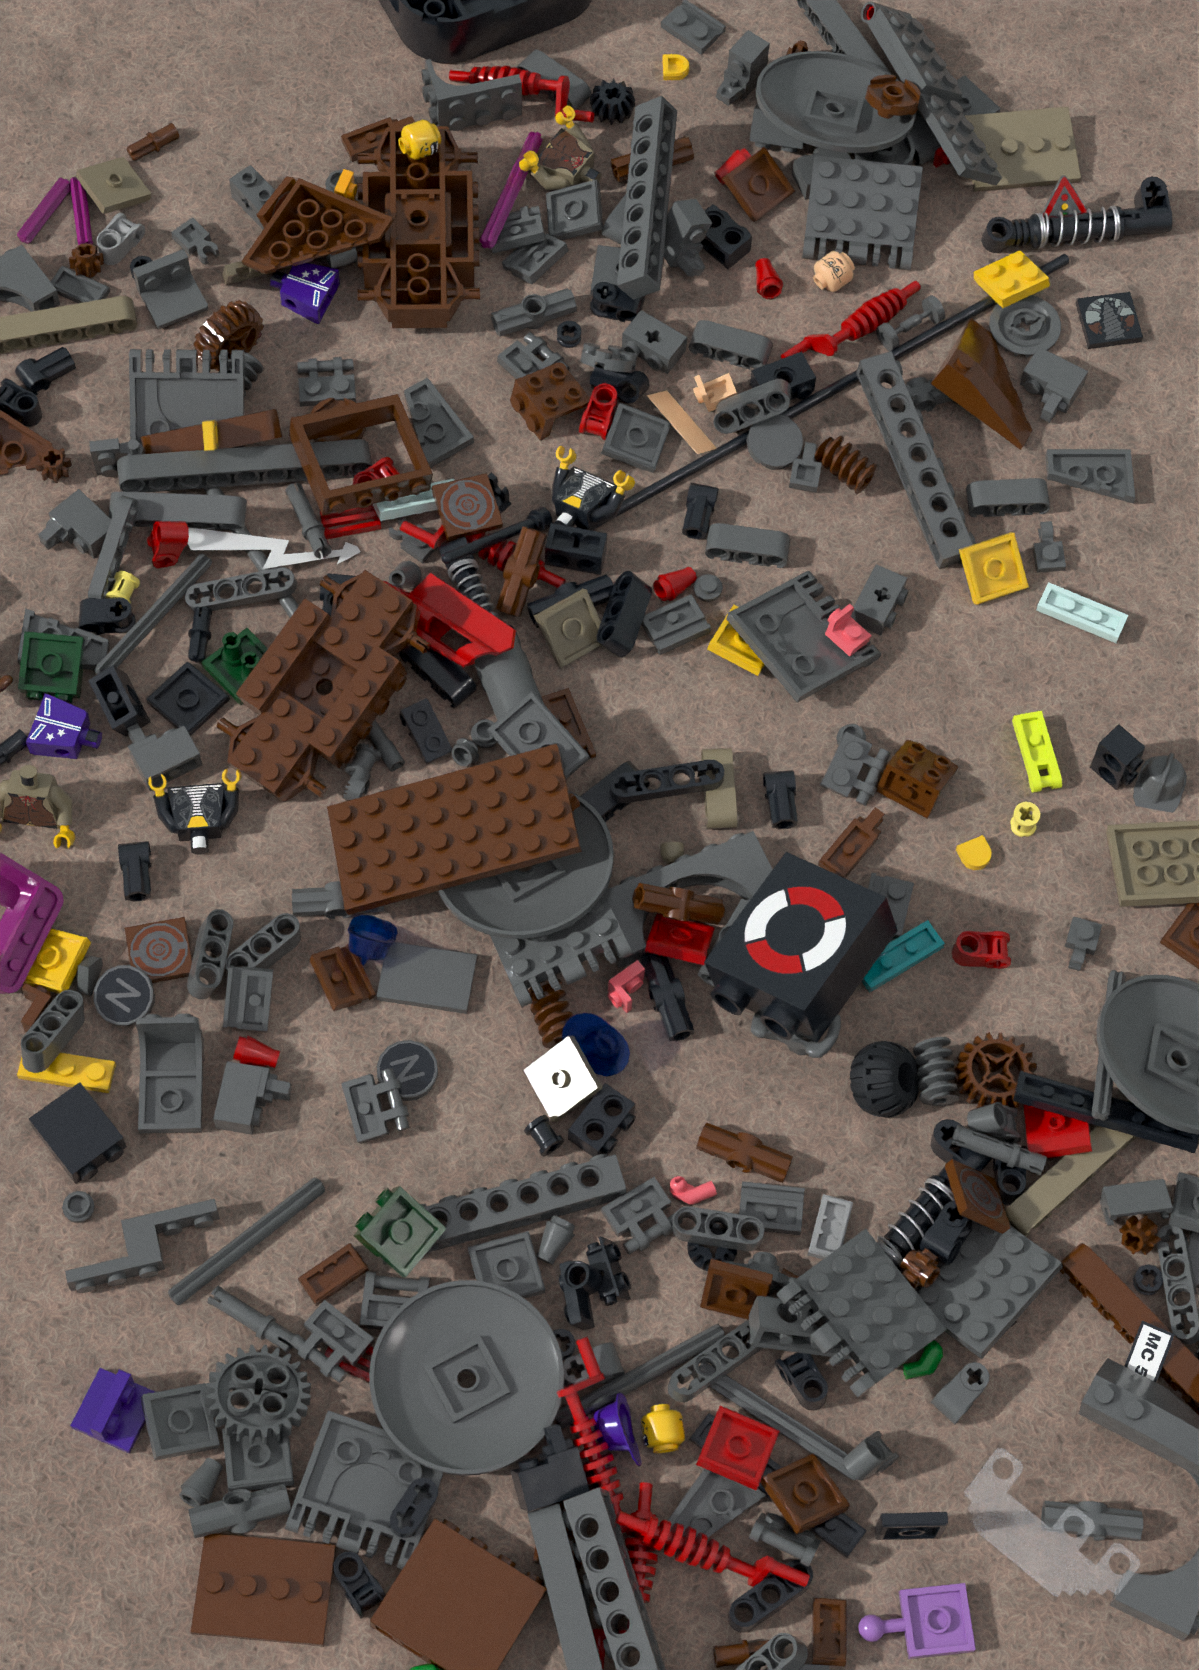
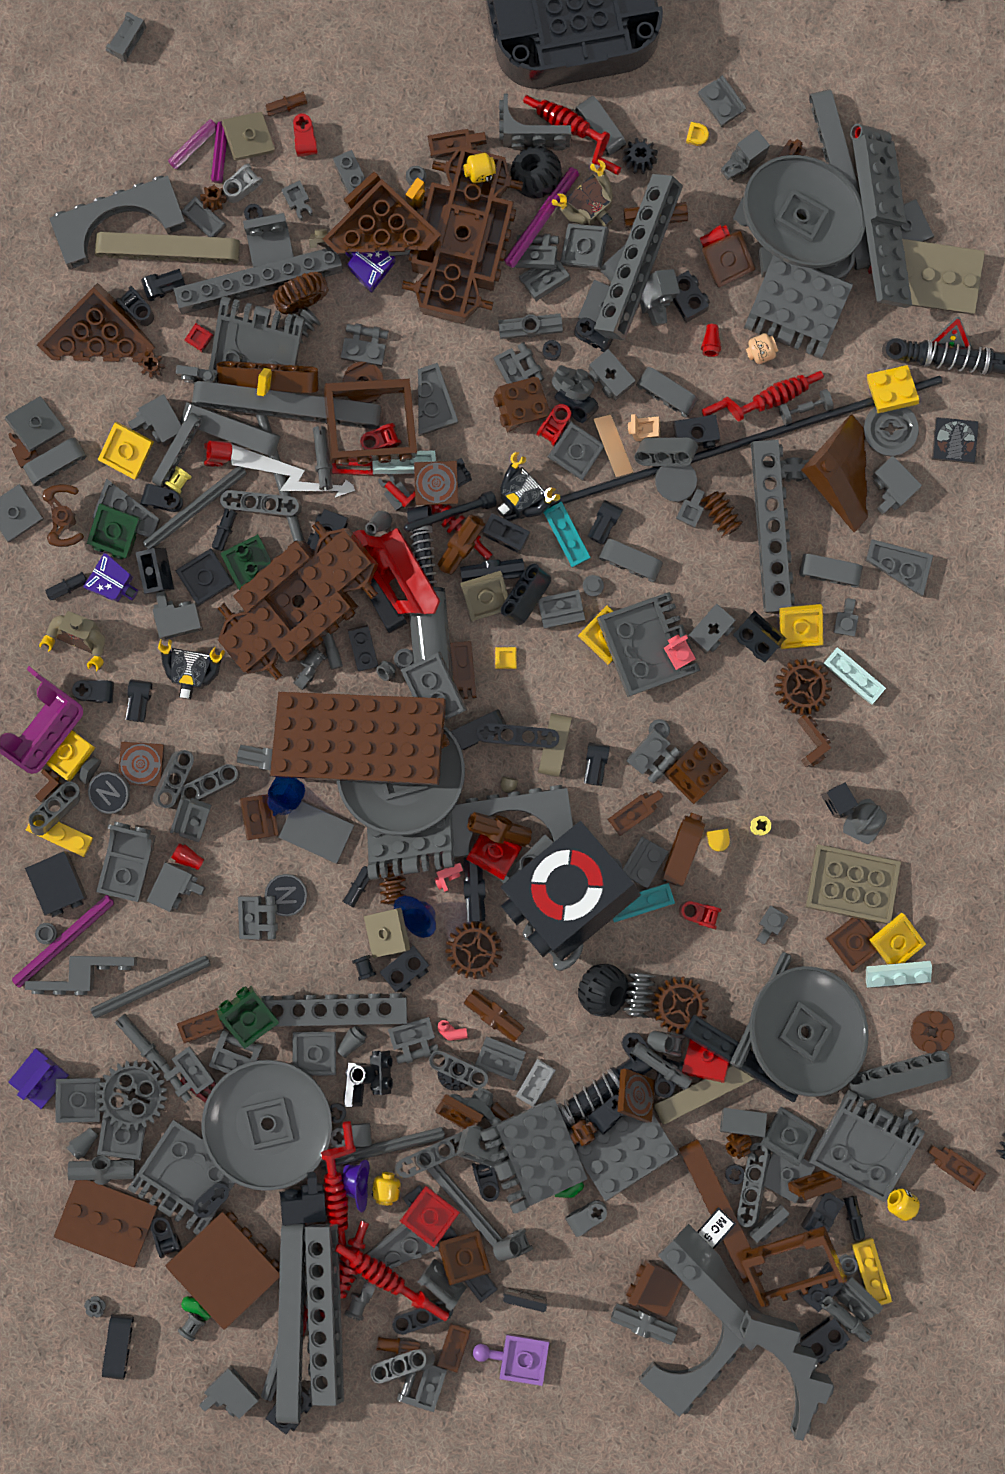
camera: 15 degrees right, 20 degrees up
(43, 569) = (125, 450): none -> yellow plate
(73, 870) = (98, 691): none -> black piece
(105, 1211) = (63, 941): none -> magenta axle
(107, 422) = (198, 337): none -> red tile
(110, 363) = (255, 280): none -> dark grey brick
(185, 169) = (304, 138): none -> red piece
(495, 140) = (538, 170): none -> black wheel
(505, 1033) = (357, 887): none -> black axle
(620, 701) = (505, 658): none -> yellow tile
(655, 535) = (567, 534): none -> teal plate
(671, 1601) = (359, 1301): none -> dark grey connector
(672, 584) = (569, 576): red cone -> none
(678, 1073) = (469, 967): none -> reddish brown gear
(892, 96) = (845, 228): reddish brown plate -> none
(933, 872) = (683, 850): none -> reddish brown window
(946, 585) = (762, 633): none -> black brick
(1024, 655) = (807, 695): none -> reddish brown gear
(1037, 750) = (786, 774): neon yellow plate -> none
(1037, 1549) = (600, 1330): clear piece -> none
(1059, 689) = (820, 740): none -> reddish brown bracket
(1089, 1466) = (654, 1288): none -> reddish brown bracket

